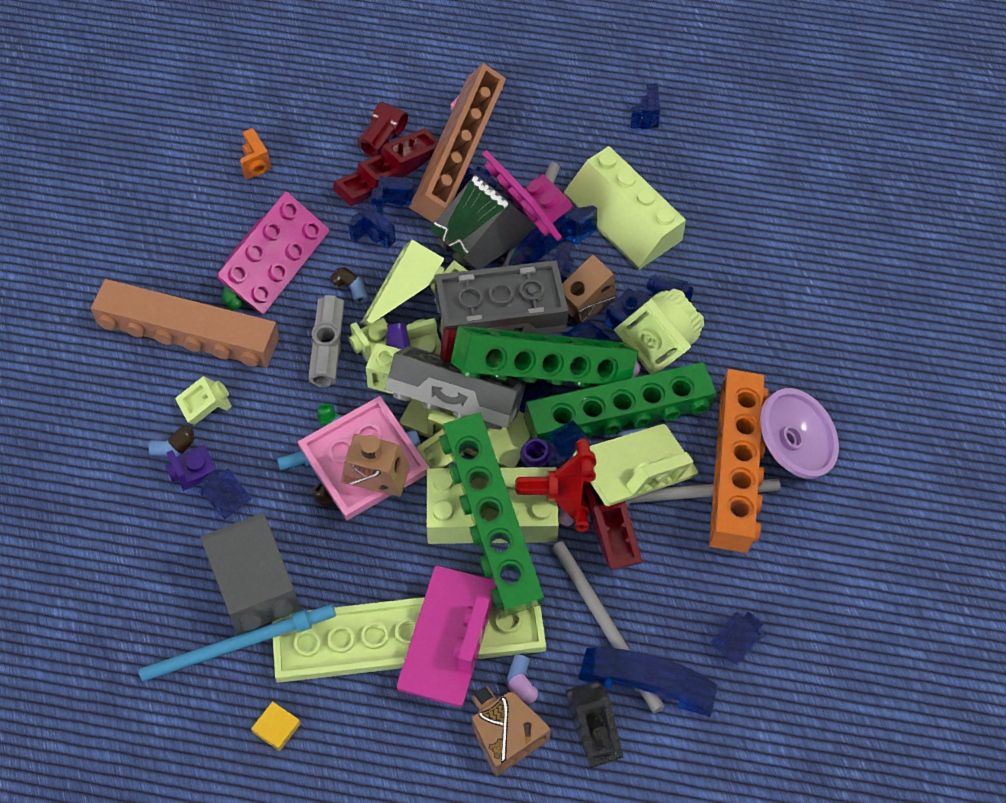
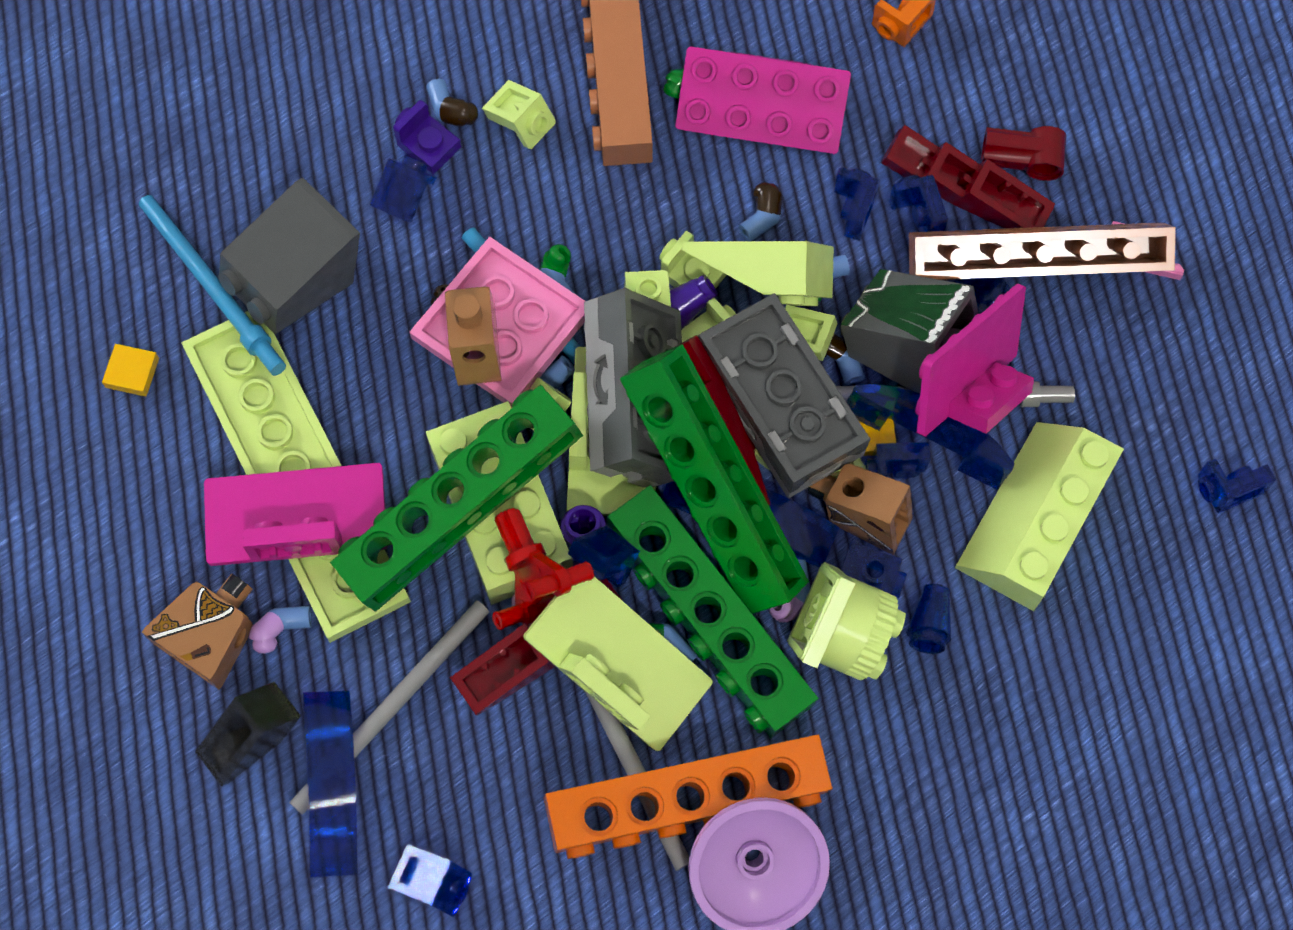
camera: 70 degrees right, 10 degrees up
(326, 354) = (636, 224): light grey piece -> none

